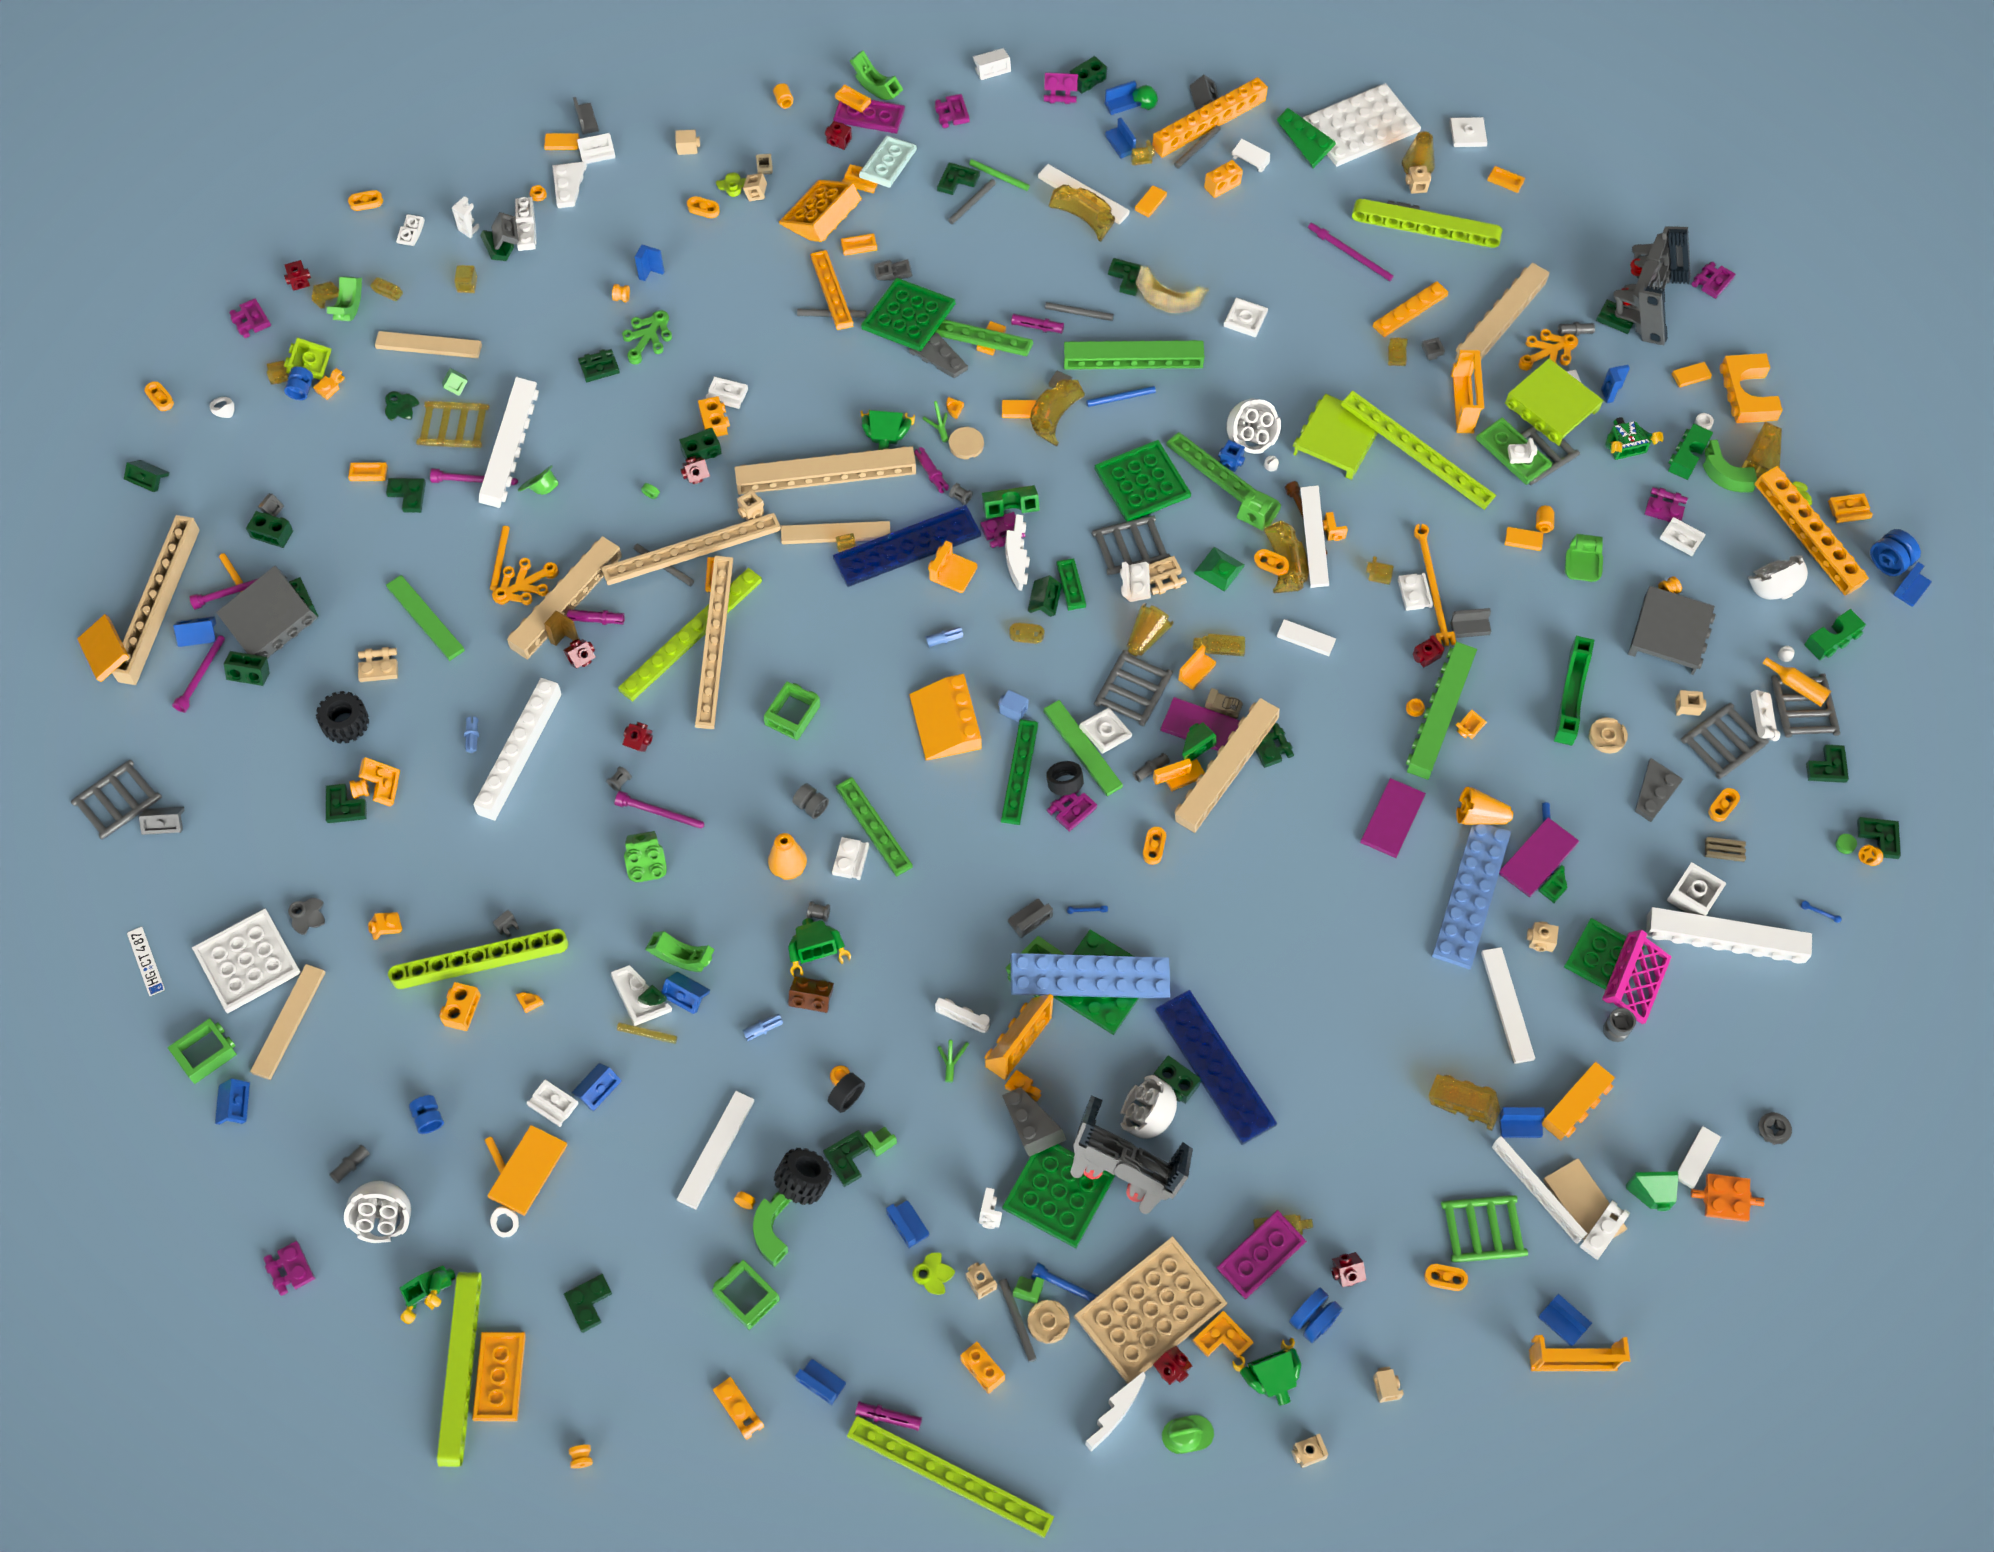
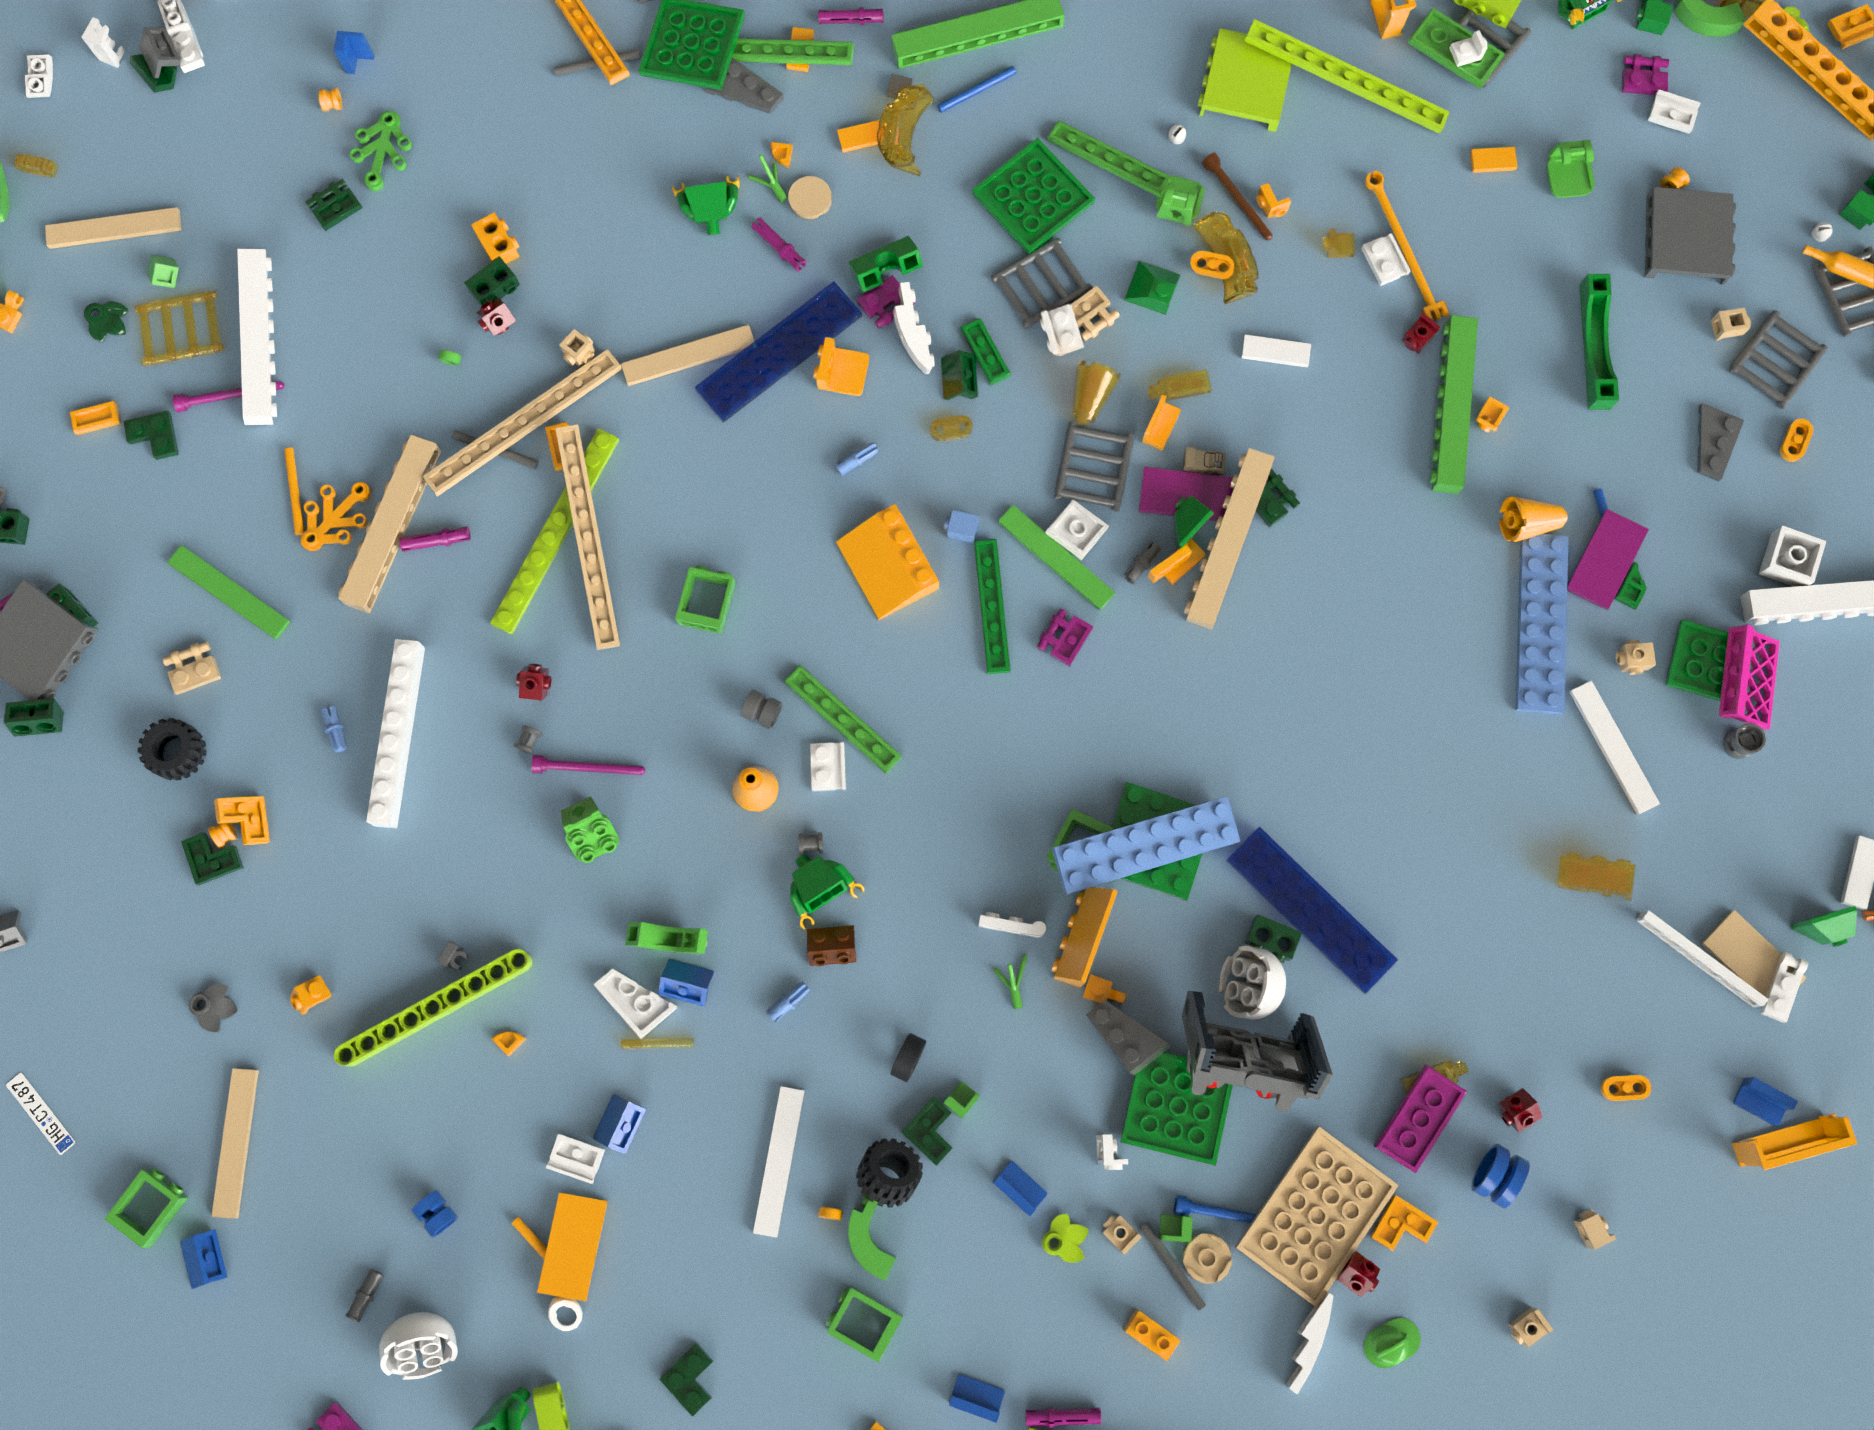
camera: 15 degrees left, 15 degrees up
(246, 960) = (160, 1083): white plate -> none
(465, 279) = (130, 127): clear yellow panel -> none
(465, 1007) = (438, 1072): light orange brick -> none
(541, 483) = (312, 380): bright green piece -> none
(560, 626) = (394, 567): pearl gold panel -> none
(580, 653) = (431, 592): brick -> none
(652, 997) = (651, 1001): dark green tile -> none
(729, 392) = (505, 201): white plate -> none
(825, 470) = (652, 276): tan brick -> none
(838, 1073) = (893, 1034): light orange tile -> none
(845, 542) = (704, 366): clear yellow tile -> none
(960, 494) = (823, 267): dark grey bush -> none
(1030, 917) = (1054, 784): dark grey panel -> none
(1061, 769) = (1042, 590): black tyre -> none
(1071, 910) = (1097, 762): blue hinge -> none
(1154, 847) = (1171, 660): light orange plate -> none
(1232, 455) = (1130, 138): blue brick -> none
(1253, 422) = (1145, 88): white cylinder -> none
(1273, 1373) = (1470, 1251): torso -> none
(1314, 536) = (1253, 218): white tile -> none
(1393, 818) = (1431, 553): magenta tile -> none
(1415, 707) = (1422, 408): light orange plate -> none
(1471, 623) = (1460, 285): dark grey panel -> none
(1490, 1203) = (1651, 987): bright green bar -> none
(1521, 1122) = (1663, 885): blue panel -> none
(1545, 519) = (1512, 128): light orange brick -> none
(1578, 1100) = (1720, 843): light orange brick -> none
(1608, 735) = (1646, 386): tan tile -> none
(1725, 845) = (1827, 491): dark tan tile -> none
(1764, 715) = (1816, 317): white plate -> none
(1779, 578) = (1806, 138): white cylinder -> none

